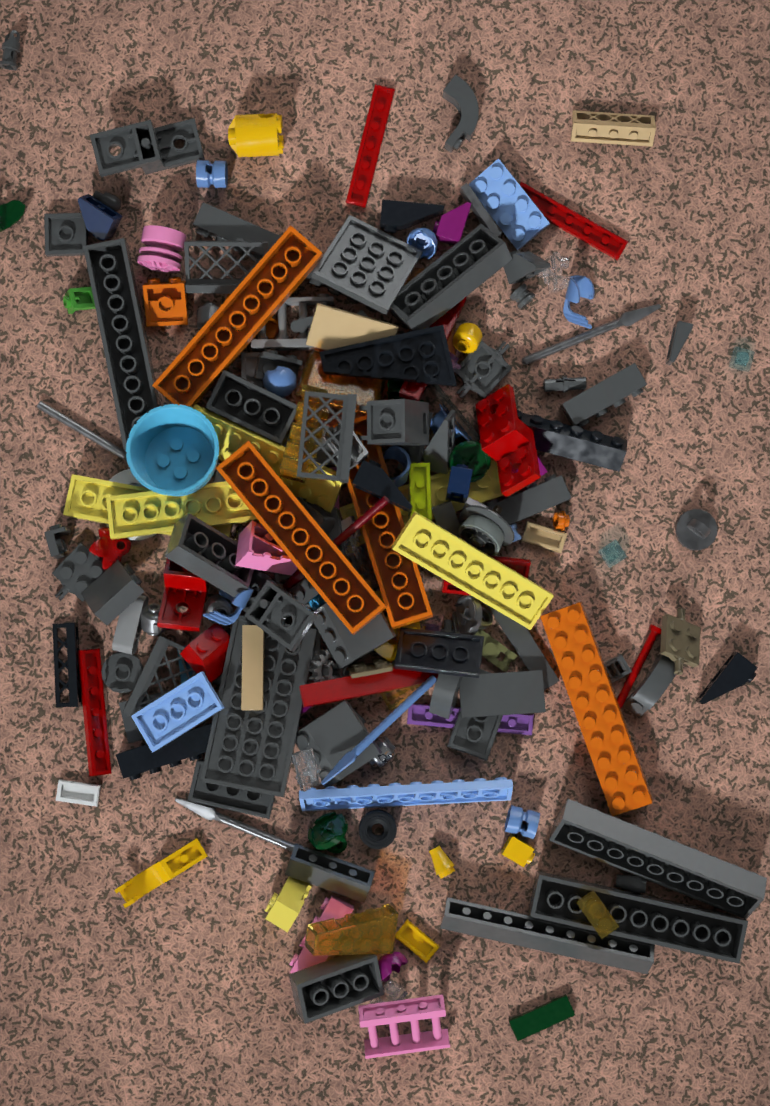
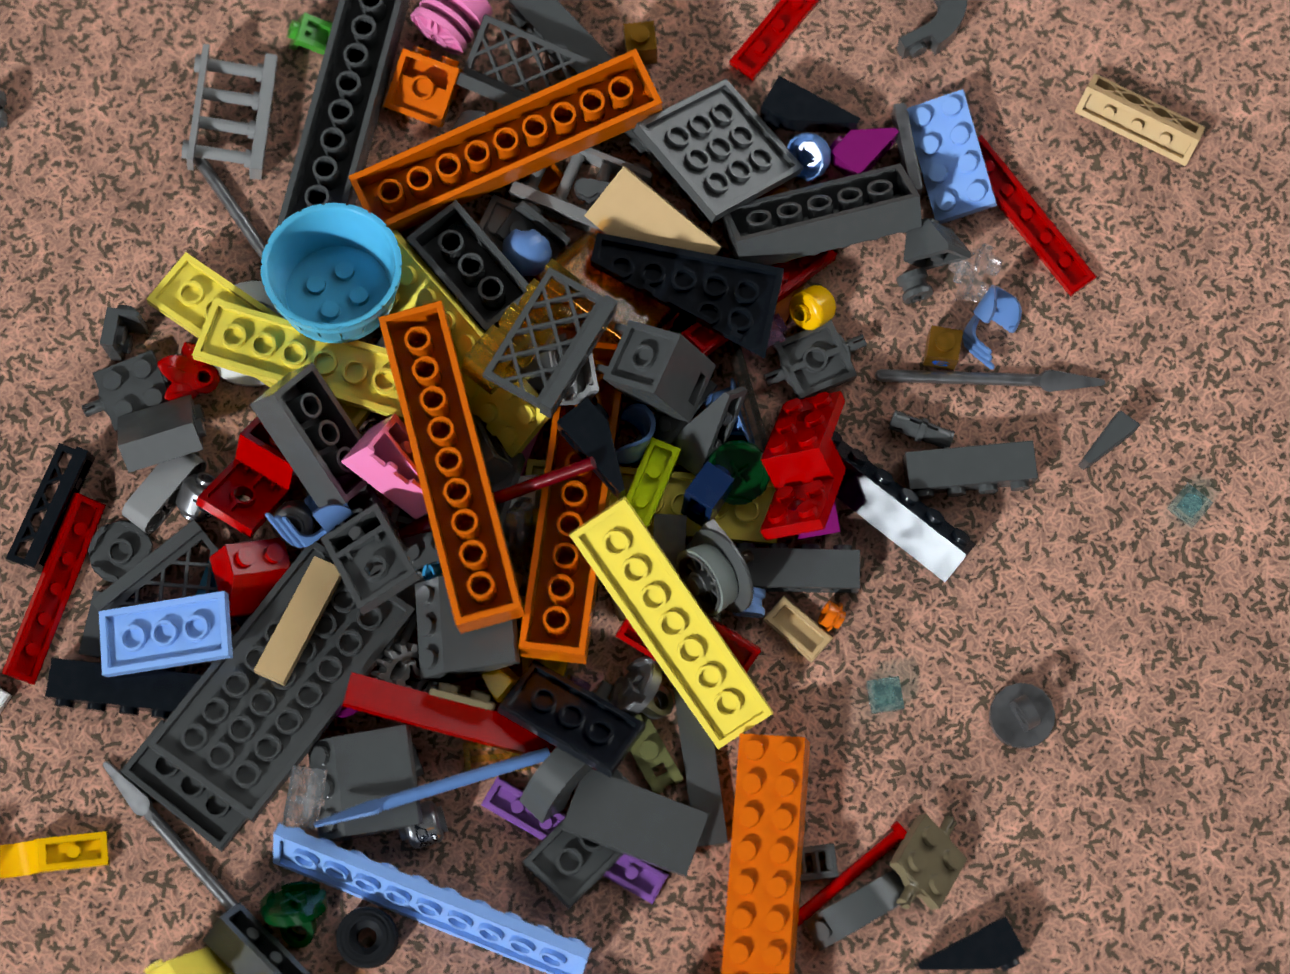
camera: 25 degrees right, 10 degrees down
(68, 357) = (259, 101): none -> light grey fence
(286, 215) = (643, 38): none -> pearl gold brick
(556, 328) = (942, 347): none -> pearl gold brick

